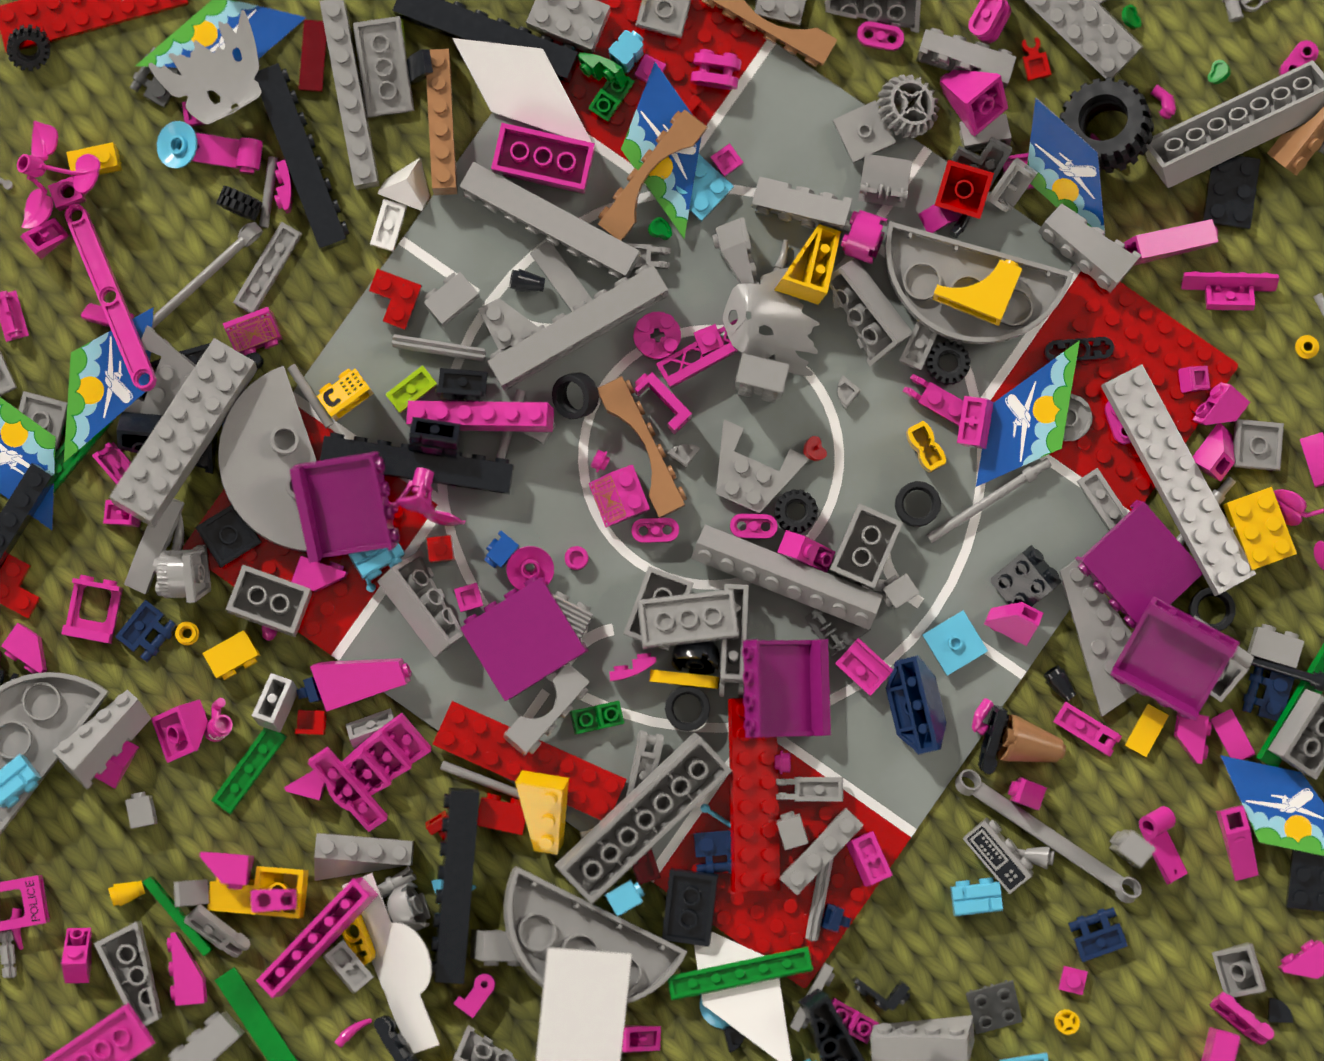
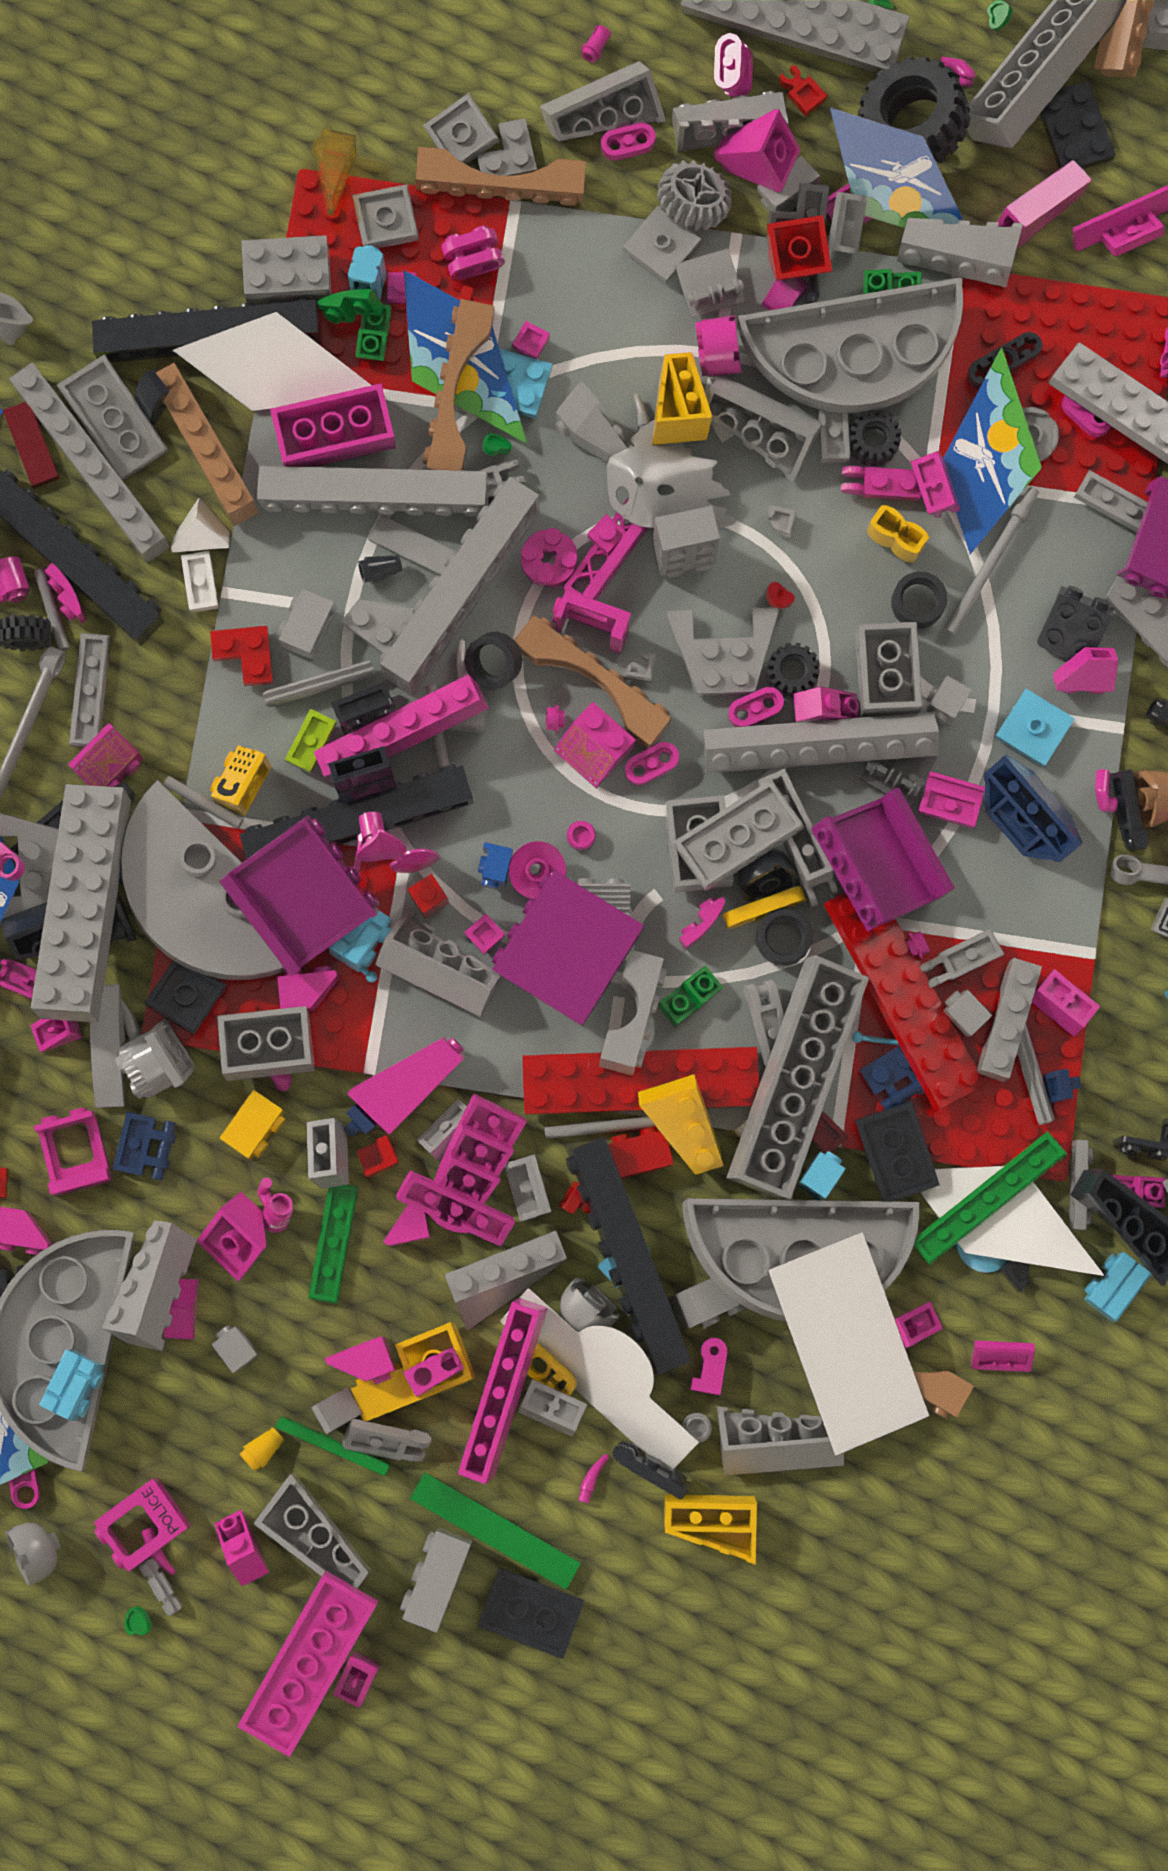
camera: 30 degrees left, 5 degrees down
(180, 630) = (183, 1123): yellow plate -> none
(188, 977) = (379, 1510): dark pink slope -> none
(396, 881) = (560, 1283): light grey pin -> none
(409, 799) = (527, 1188): none -> light grey hinge
(445, 1032) = (698, 1426): none -> light grey plate
(548, 391) = (460, 665): none -> white helmet
(800, 204) = (634, 346): light grey wedge -> none
(986, 298) = (883, 345): yellow arch -> none
(1020, 246) = (885, 279): none -> green slope
(1194, 379) = (1140, 333): dark pink slope -> none

